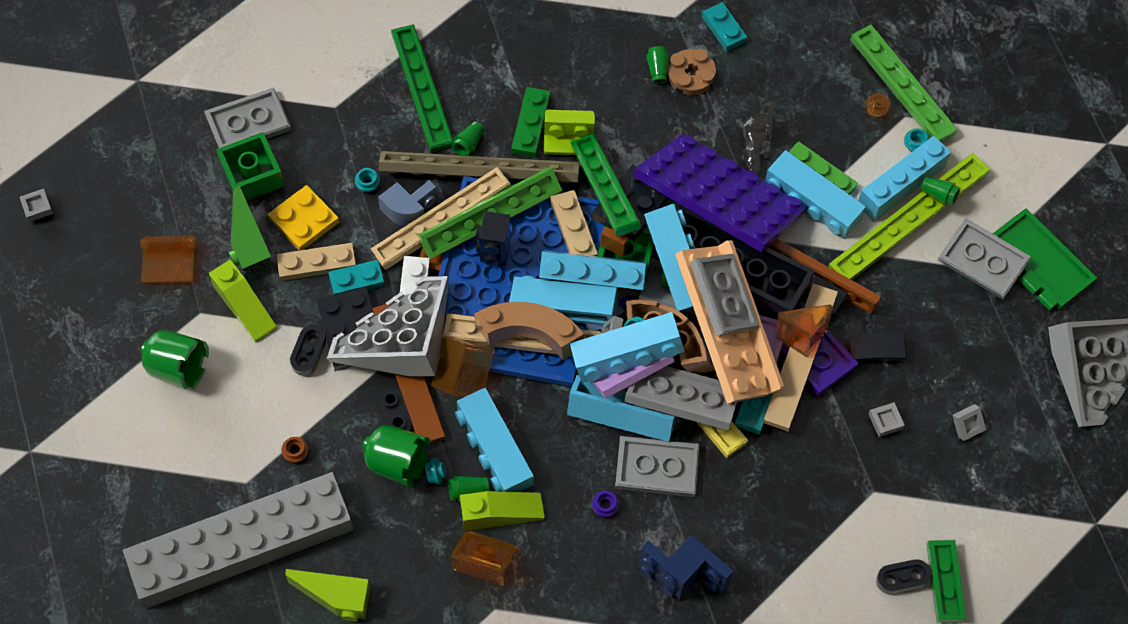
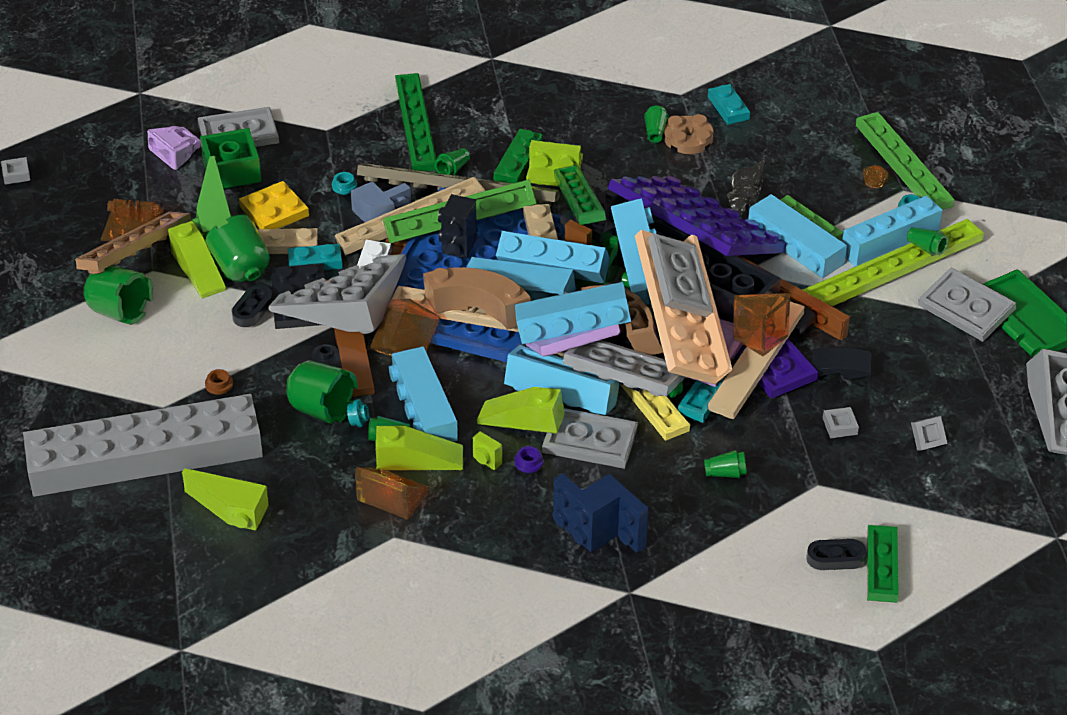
camera: 10 degrees right, 20 degrees down
(178, 295) = (130, 242): none -> medium nougat plate
(185, 153) = (173, 144): none -> lavender piece
(285, 291) = (238, 249): none -> green cylinder
(565, 501) = (487, 451): none -> lime plate
(591, 449) = (526, 409): none -> lime slope
(790, 485) = (726, 465): none -> green cone

